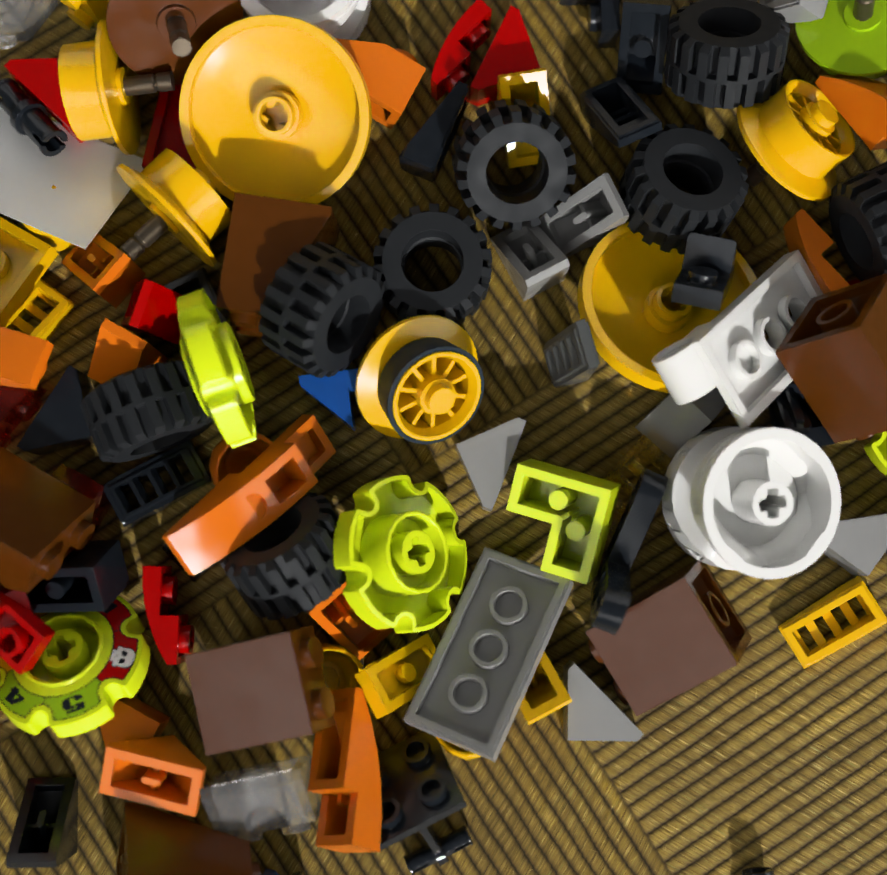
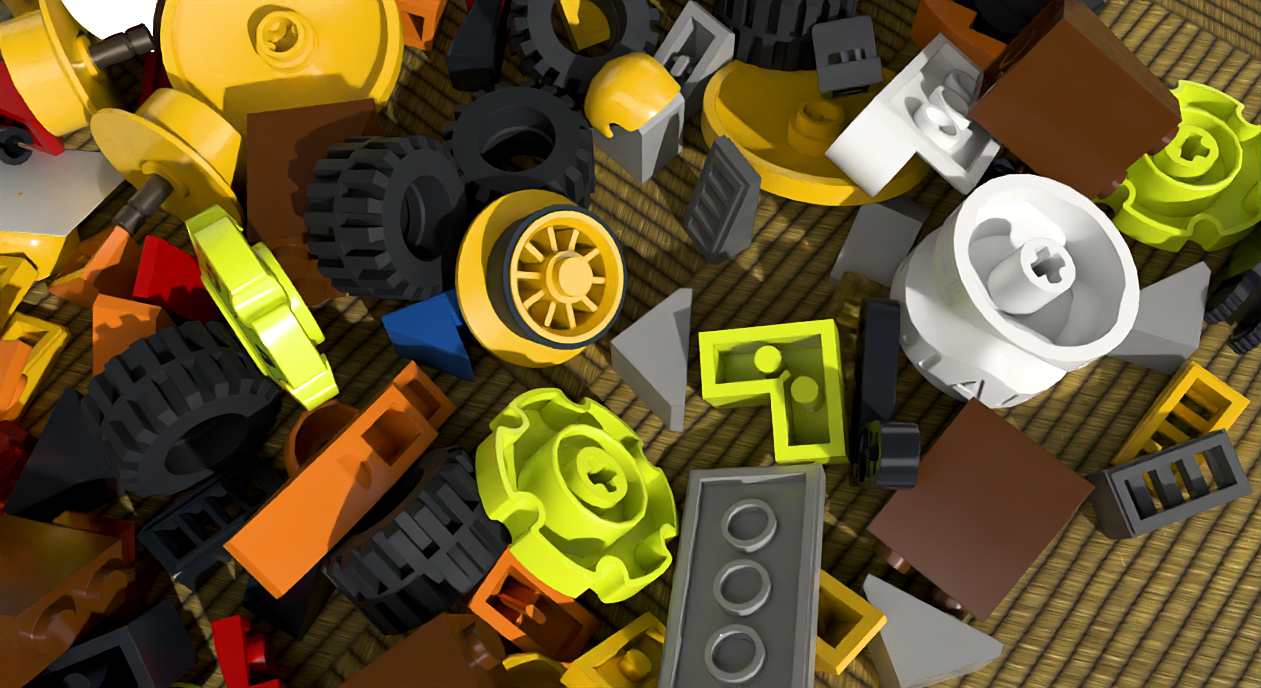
camera: 15 degrees left, 20 degrees down
(529, 252) = (628, 93): none -> yellow hair
(784, 678) = (1124, 500): none -> dark grey slope

